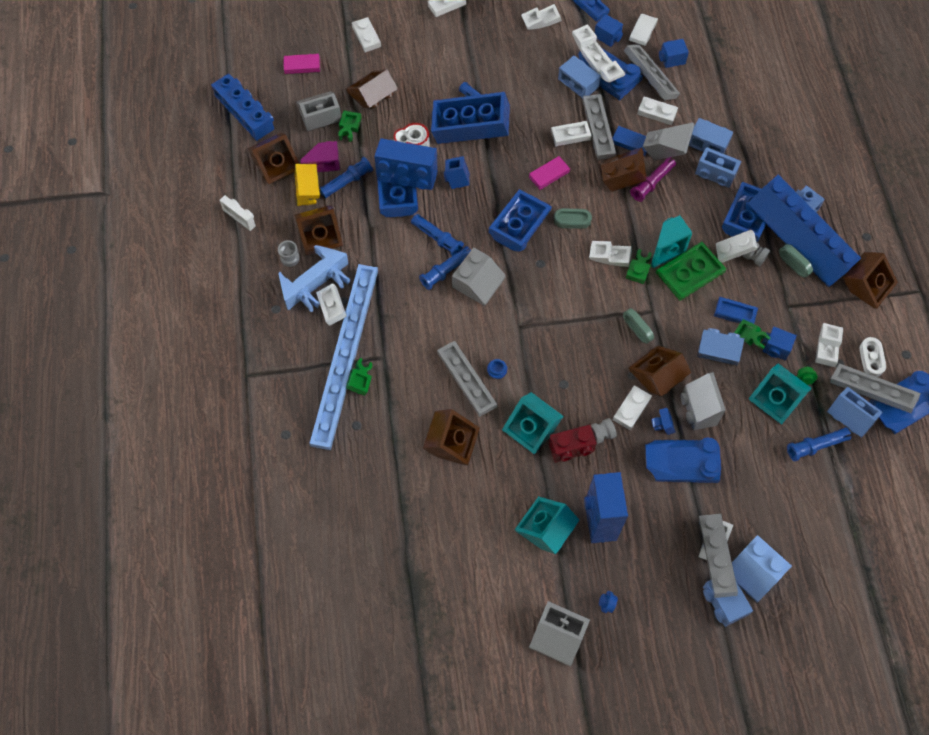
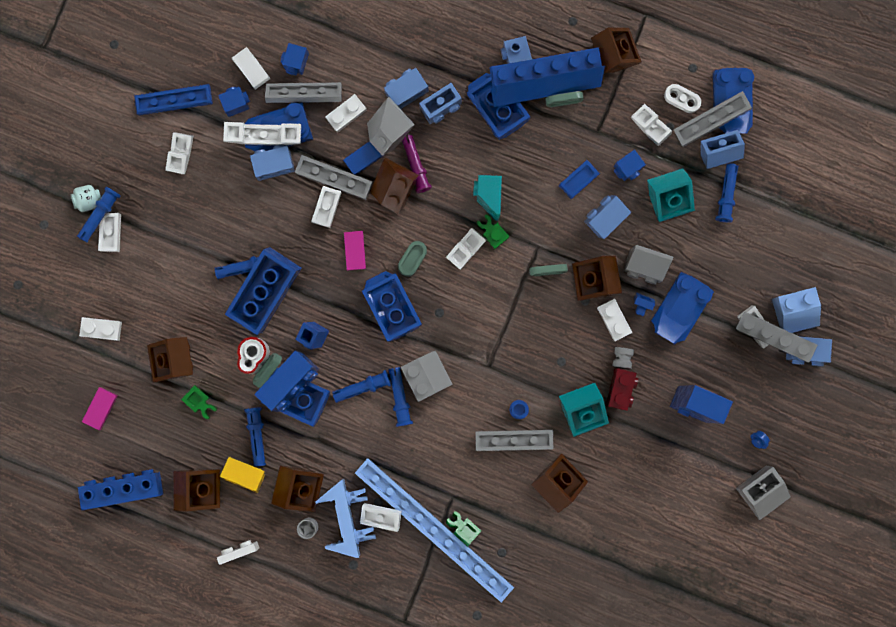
camera: 60 degrees left, 20 degrees up
(319, 110) = (165, 421): light grey slope -> none
(325, 156) = (222, 445): magenta slope -> none
(547, 524) = (674, 450): teal slope -> none
(691, 271) = (520, 191): green tile -> none
(736, 246) = (524, 140): white plate -> none
(751, 333) = (608, 185): green plate -> none
(759, 257) = (539, 126): light grey wheel -> none
(807, 375) = (669, 163): green plate -> none

